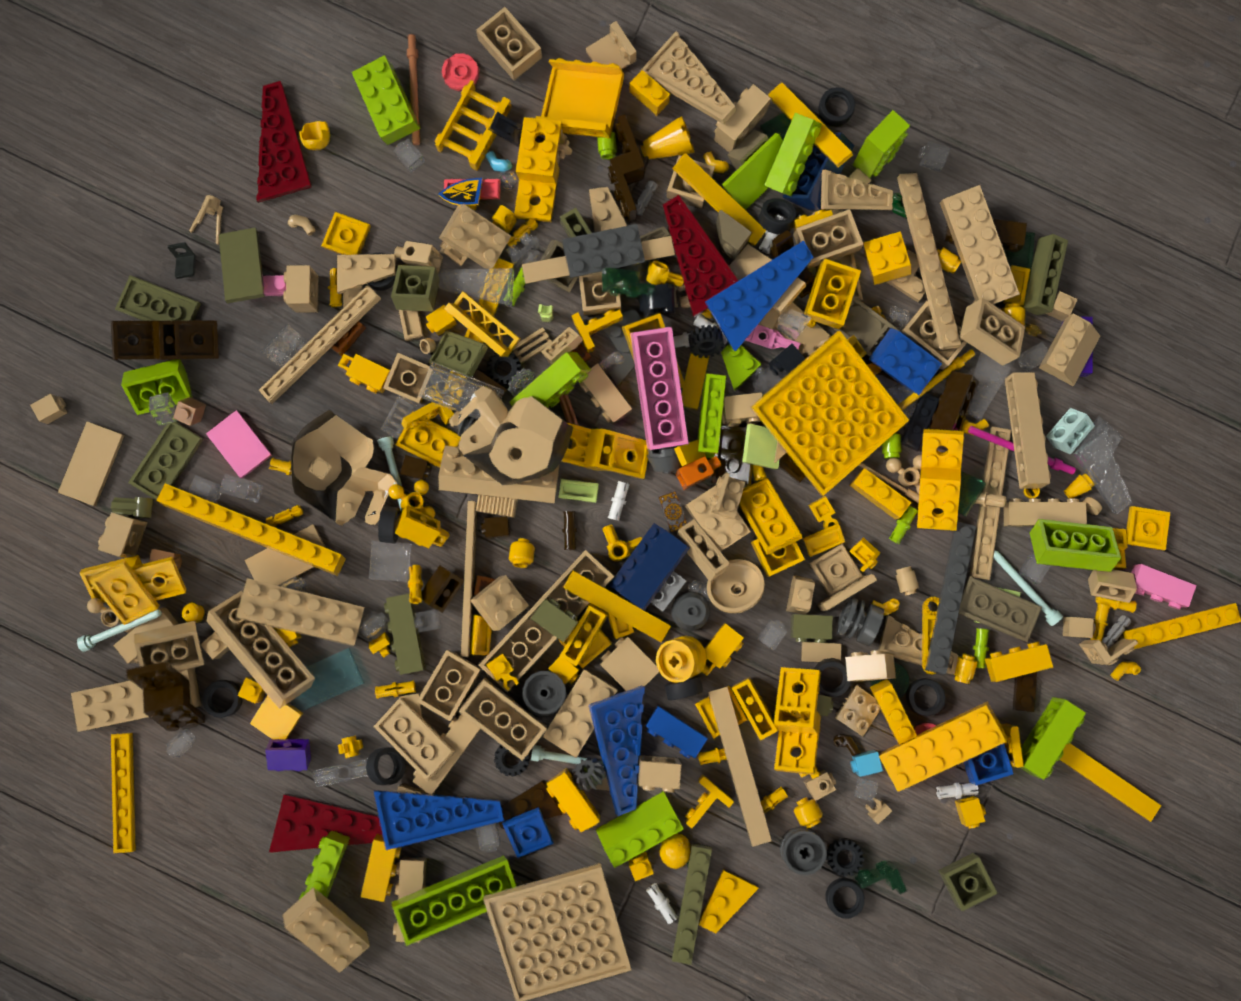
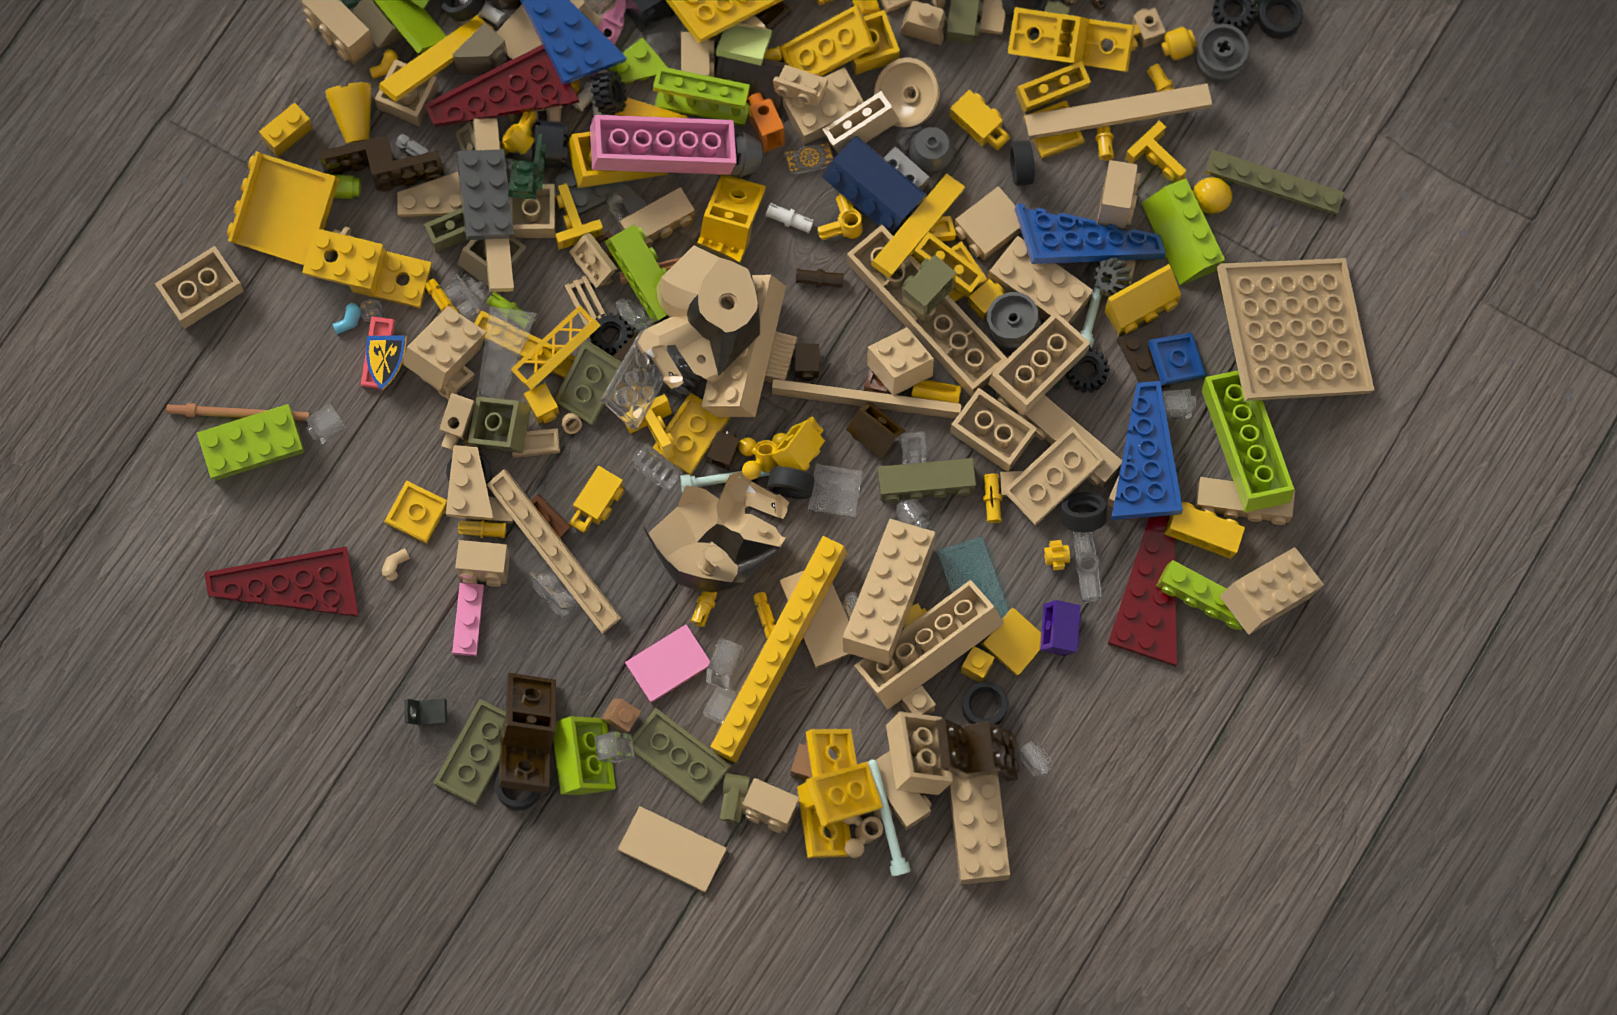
camera: 85 degrees left, 10 degrees down
(49, 408) = (595, 893): tan brick -> none
(123, 793) = (1089, 838): yellow tile -> none
(193, 612) = (881, 733): yellow piece -> none
(210, 205) = (358, 672): tan plant -> none
(241, 265) = (440, 638): olive tile -> none
(315, 135) = (283, 533): yellow hair -> none
(380, 645) = (937, 509): yellow tile -> none
(406, 377) = (611, 444): tan brick -> none
(415, 584) = (867, 459): yellow pin -> none
(459, 70) = (223, 355): coral tile -> none
(483, 140) = (298, 320): yellow fence -> none
(500, 669) = (980, 362): yellow plate -> none
(504, 219) = (423, 314): yellow leg -> none
(508, 129) = (312, 296): black tile -> none
(521, 553) = (842, 334): yellow head -> none
(546, 313) = (549, 276): yellowish green bar -> none
(578, 490) = (773, 259): yellowish green tile -> none
(613, 48) = (224, 167): tan bracket -> none
(640, 866) = (1227, 234): yellow brick -> none
(662, 903) = (1271, 217): white pin -> none
(675, 732) = (1073, 180): blue brick -> none
(681, 659) = (989, 174): yellow wheel -> none
(685, 77) = (278, 80): tan wing -> none
(689, 452) = (744, 124): yellow tile -> none
(725, 900) = (1273, 147): yellow wing -> none
(772, 634) = (968, 60): clear brick -> none

